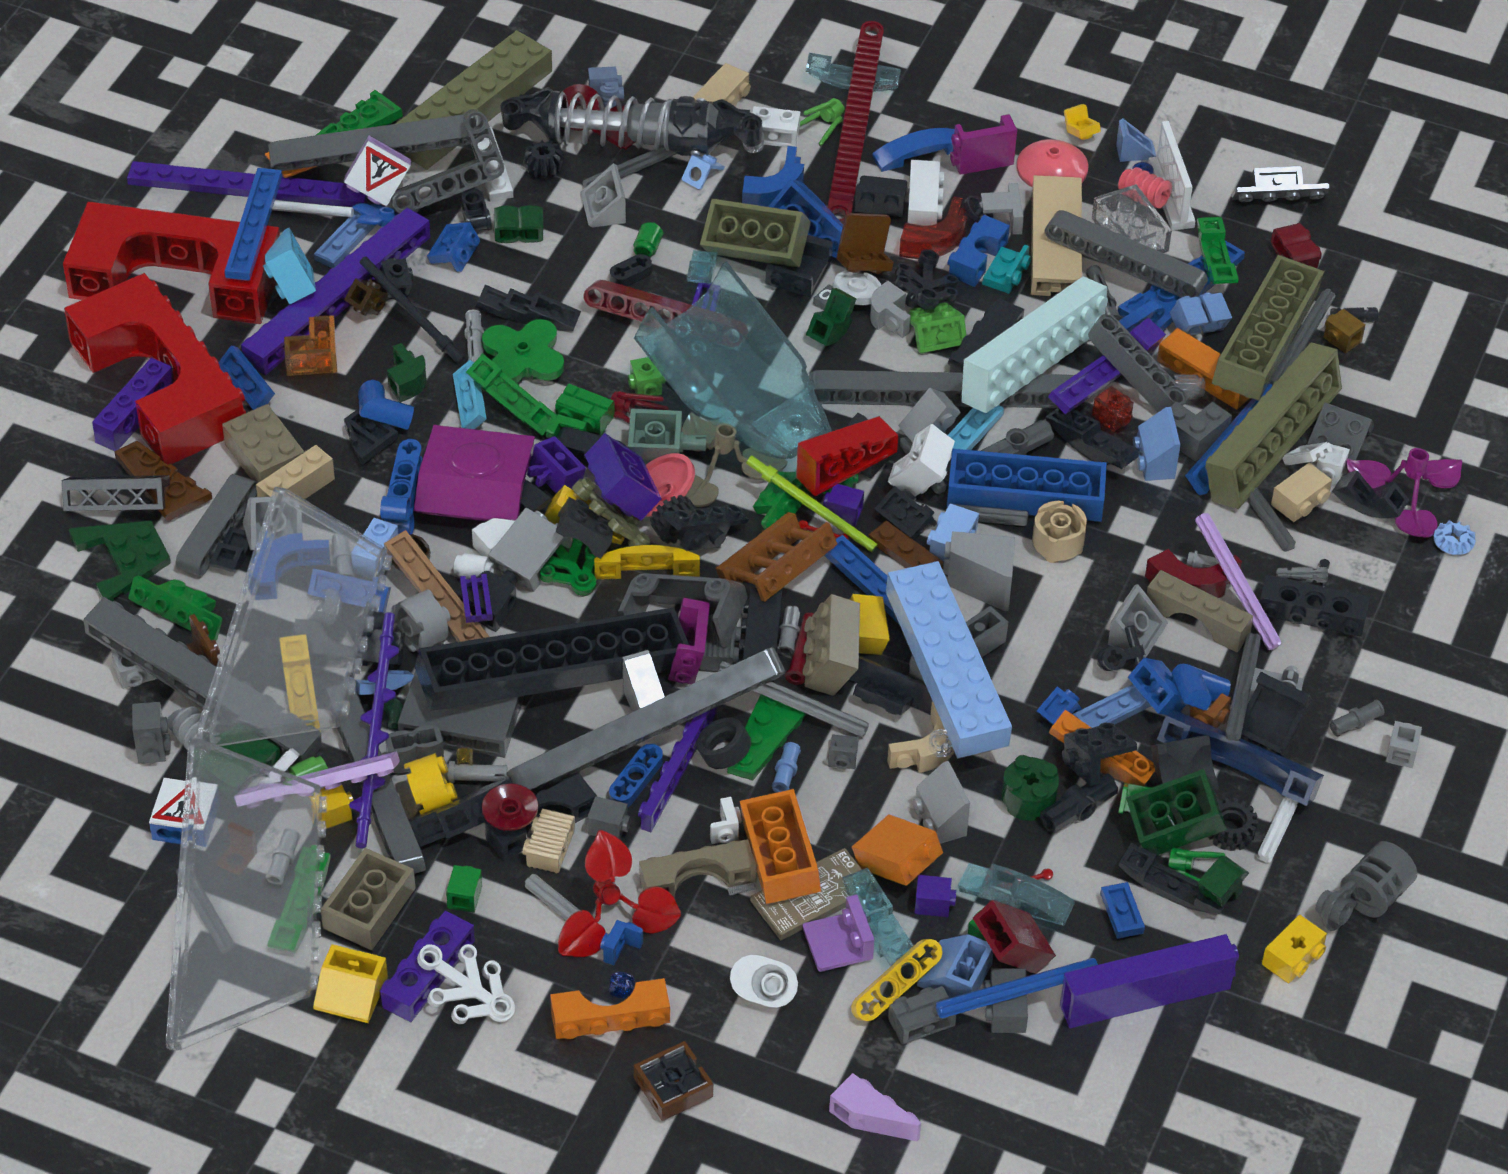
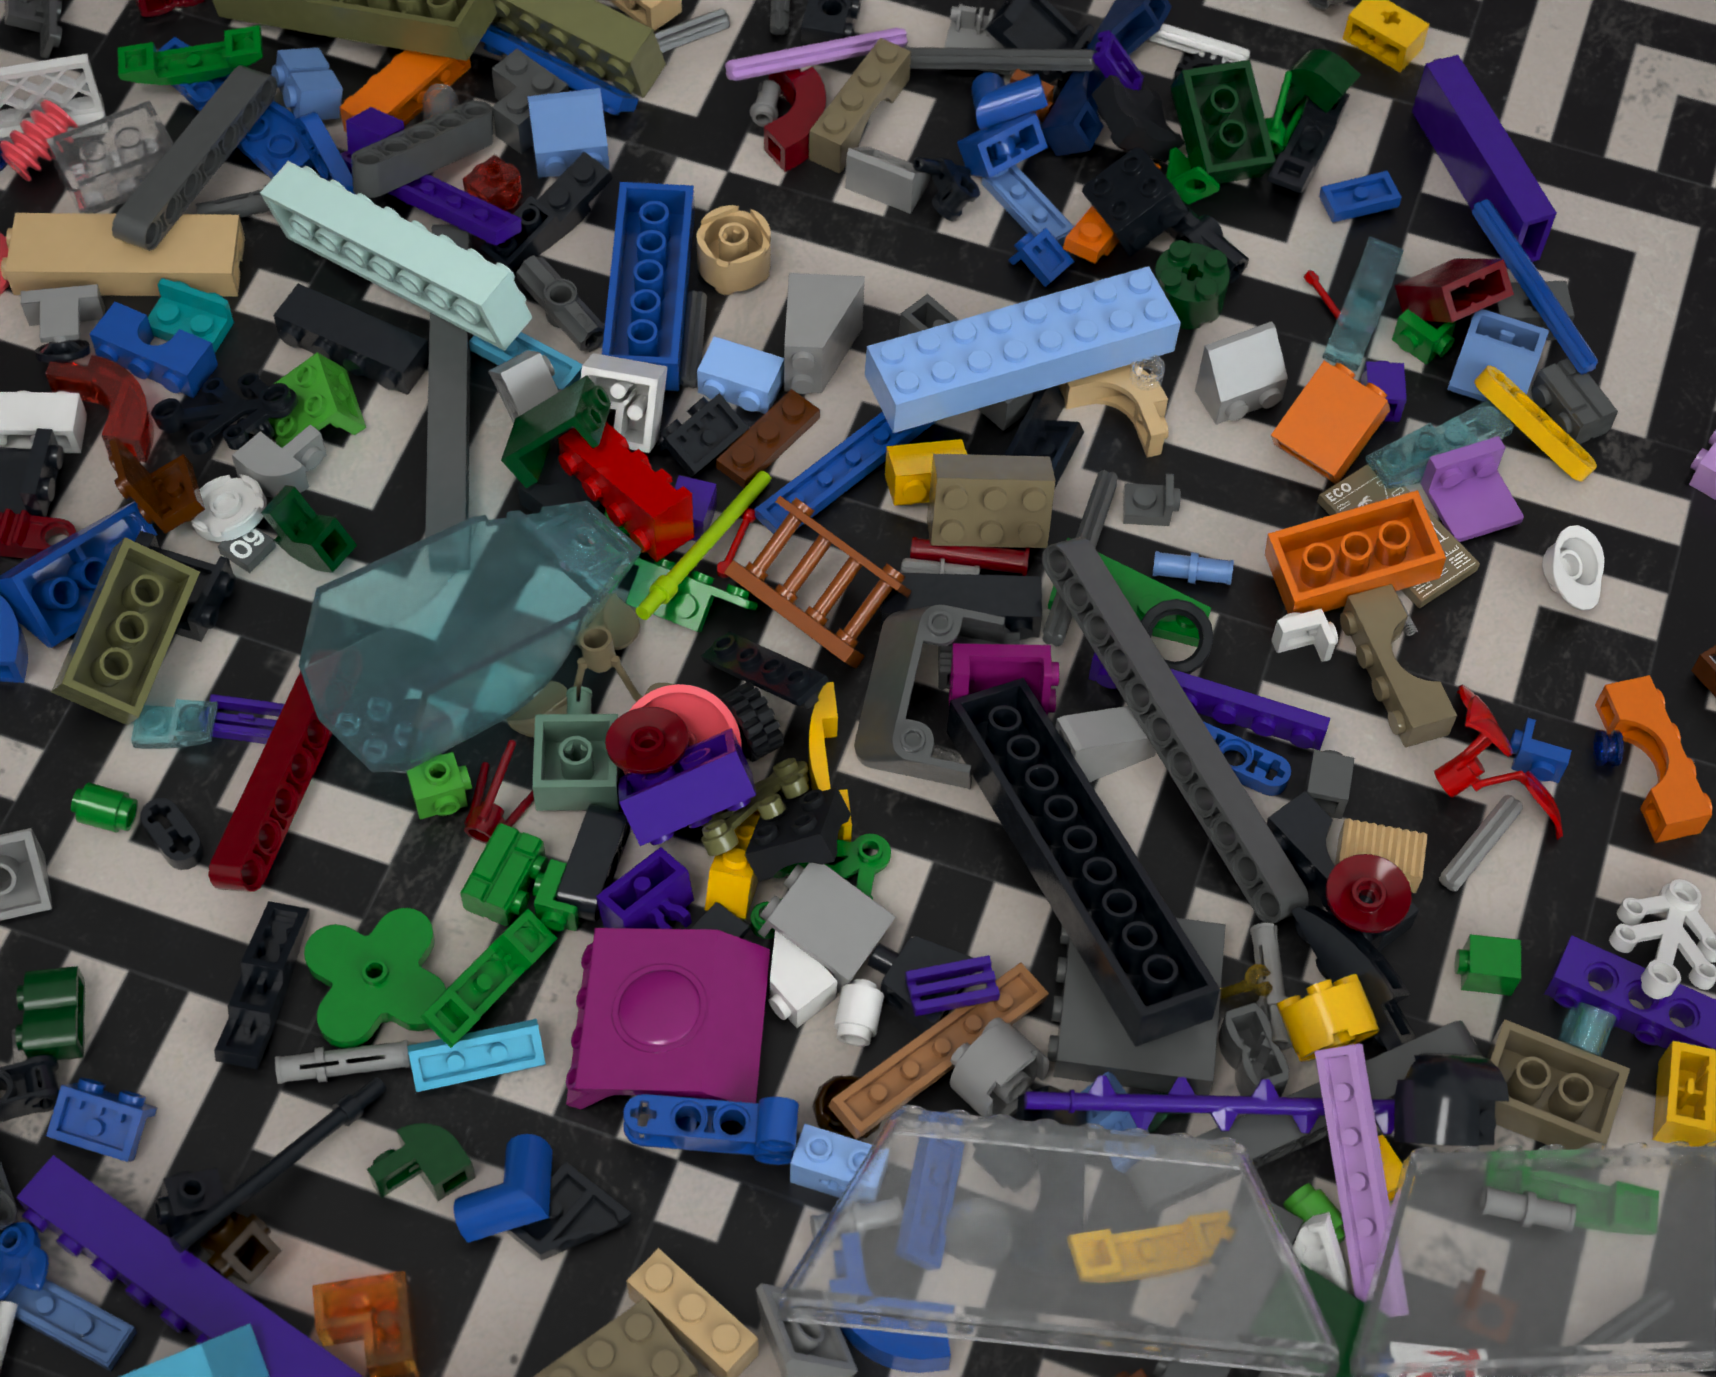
camera: 95 degrees left, 10 degrees up
(357, 821) = (1448, 1100): none -> black brick
(404, 924) = (1587, 1028): none -> clear light blue piece
(655, 456) = (647, 740): none -> dark red dish
(884, 415) = (577, 405): none -> dark green panel
(1241, 740) = (1115, 61): none -> dark purple tile

